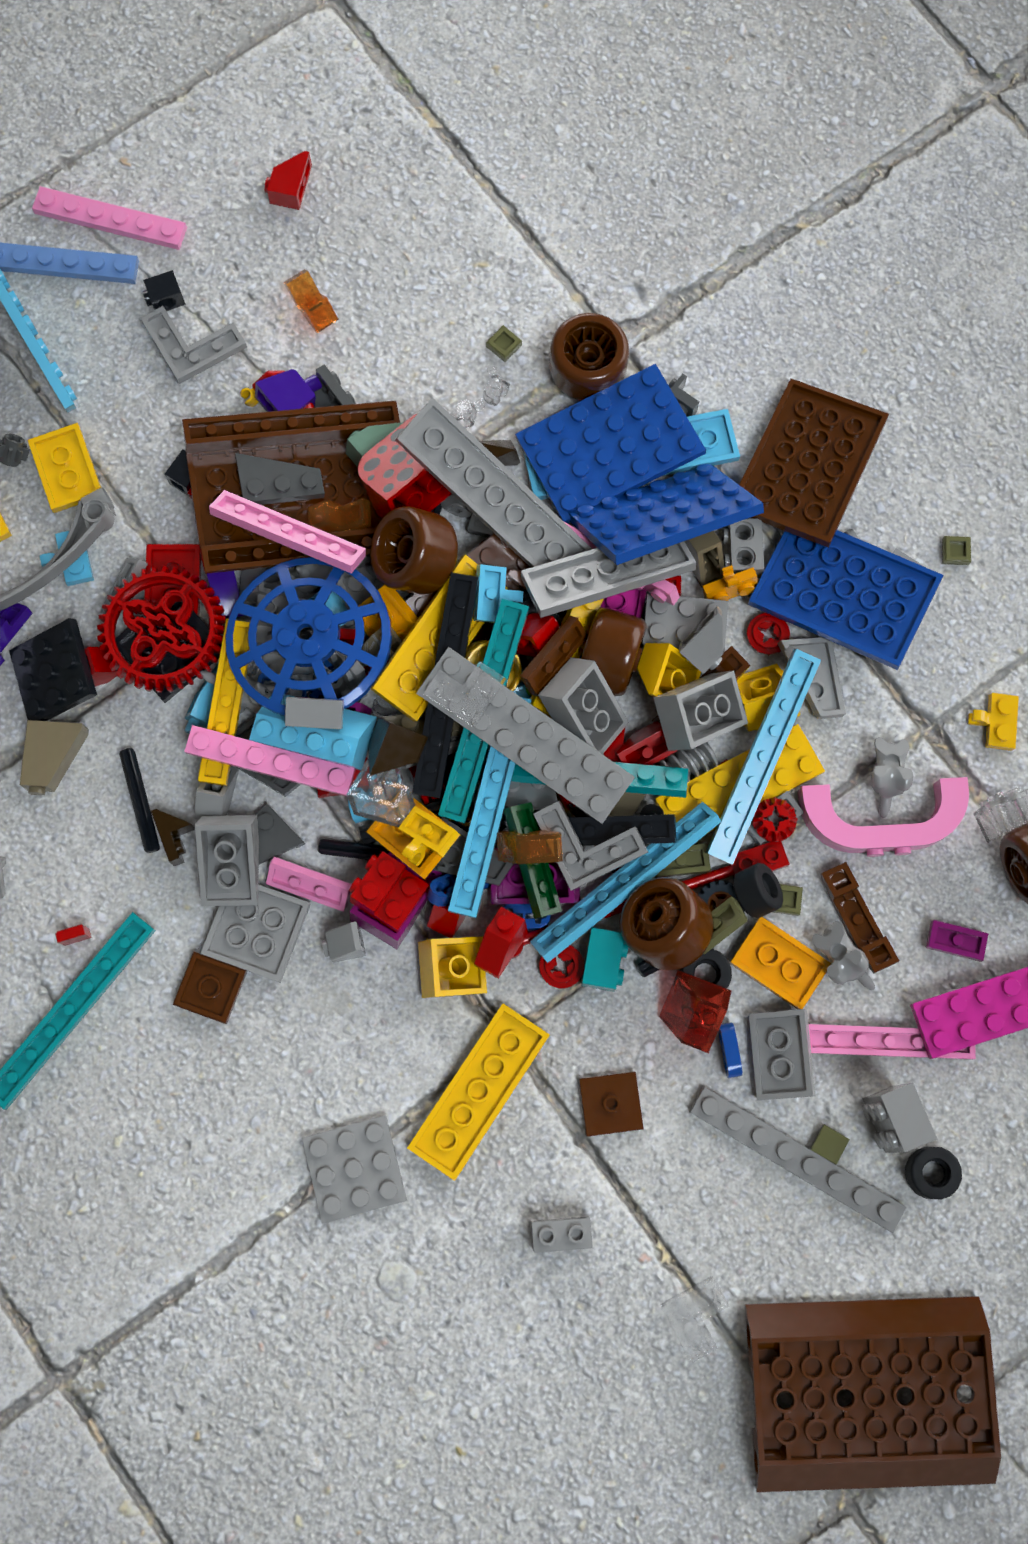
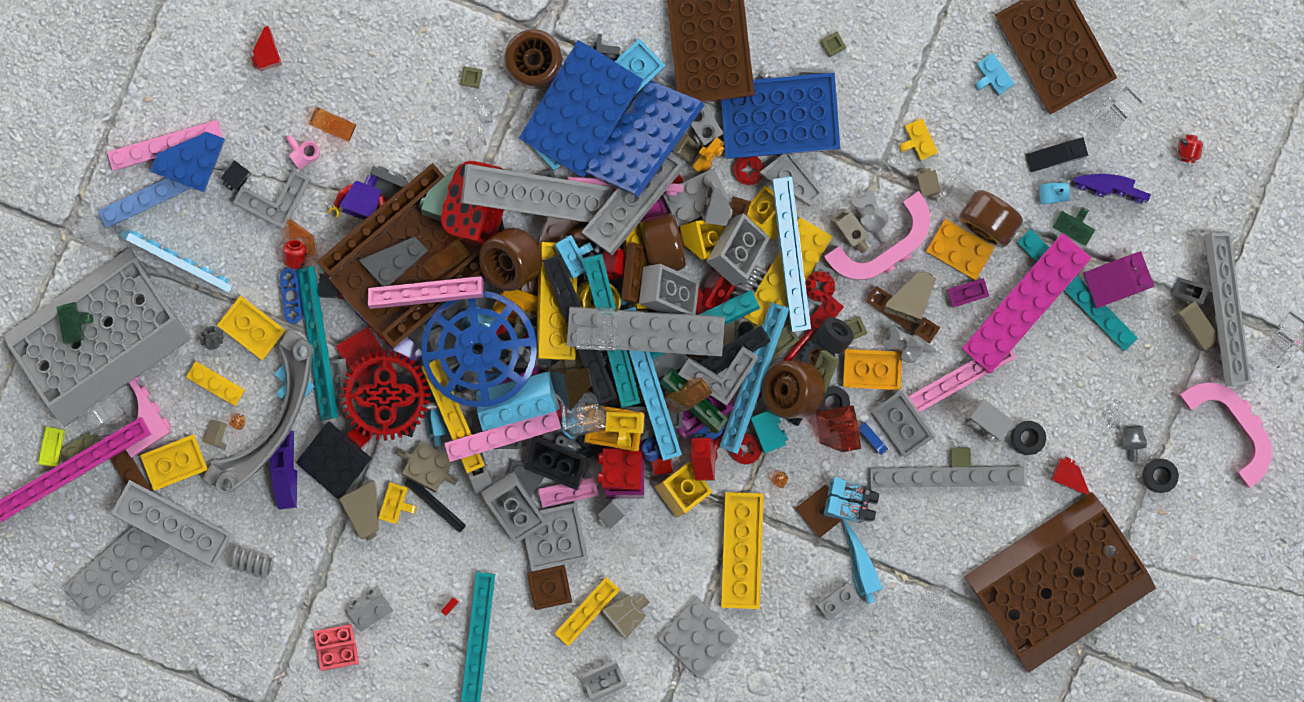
camera: 25 degrees left, 10 degrees up
(92, 769) = (394, 503): none -> yellow plate
(123, 245) = (190, 161): none -> blue plate
(127, 530) = (317, 338): none -> teal plate
(133, 449) = (287, 311): none -> blue beam
(159, 750) = (427, 467): none -> dark tan plate
(168, 829) = (464, 510): dark brown slope -> none
(169, 412) = (294, 254): none -> red head
(190, 395) = (297, 232): none -> clear orange slope
(199, 1148) = (603, 680): none -> light grey bracket
(236, 1047) = (587, 611): none -> yellow plate
(250, 312) = (298, 155): none -> bright pink piece
(282, 1081) = (626, 613): none -> dark tan torso
(314, 713) = (514, 393): light grey tile -> none
(316, 837) = (557, 463): none -> black slope
(341, 825) = (565, 441): none -> dark grey piece
(503, 451) = (512, 156): dark brown slope -> none
(581, 1030) = (780, 479): none -> clear orange hinge
(617, 1217) = (864, 573): none -> medium azure piece
(654, 1113) = (850, 501): none -> hips
(857, 765) = (846, 224): none -> dark tan torso
(882, 903) = (912, 298): none -> dark tan slope
(961, 1257) = (1069, 475): none -> red slope
(976, 882) = (960, 249): none -> light orange plate
(983, 776) = (928, 182): none -> dark tan brick

